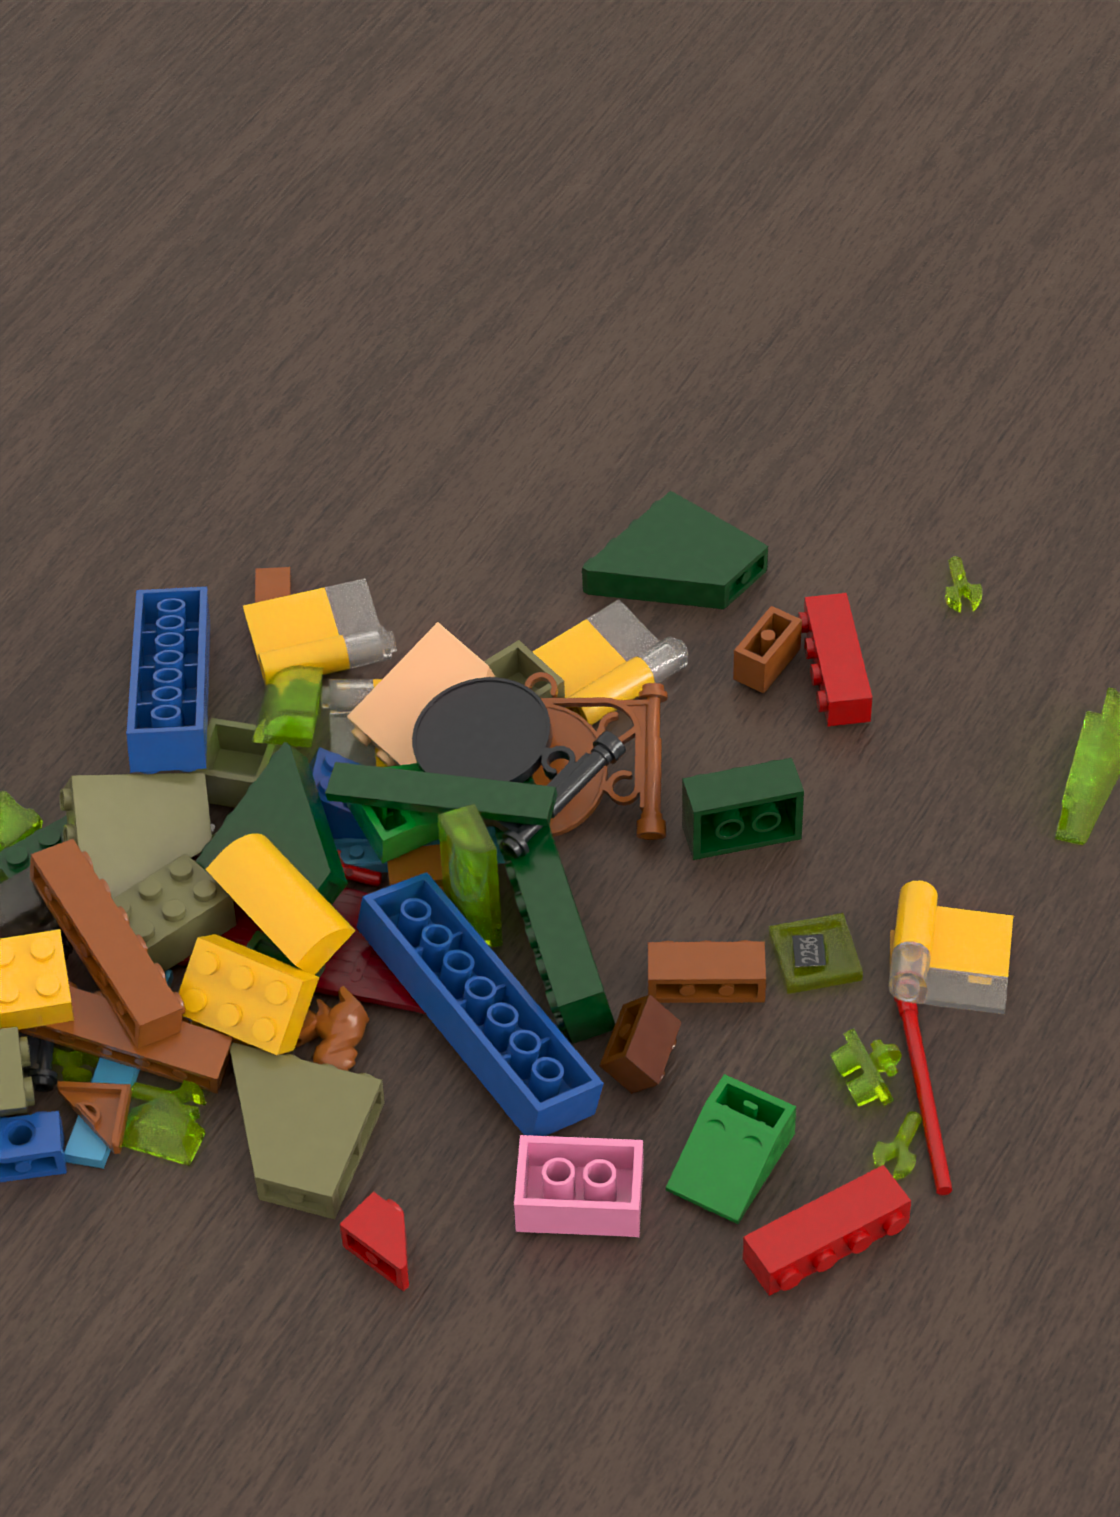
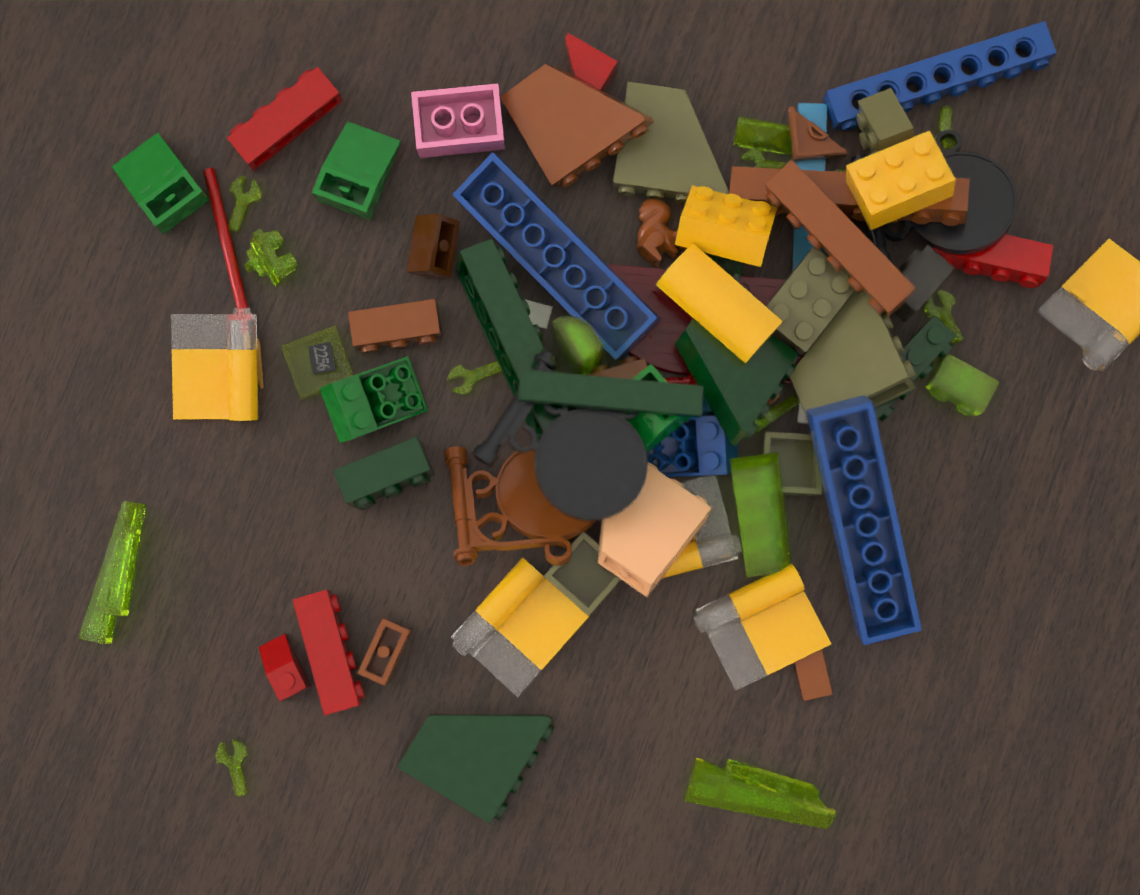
camera: 170 degrees right, 35 degrees up
(366, 501) = (757, 793): none -> clear neon green wedge
(420, 1154) = (570, 122): none -> dark orange slope
(524, 973) = (539, 313): none -> white sticker
(620, 913) = (472, 376): none -> clear neon green bar
(748, 893) = (373, 399): none -> green slope
(892, 653) = (283, 668): none -> red slope
(1012, 1169) = (160, 183): none -> green slope

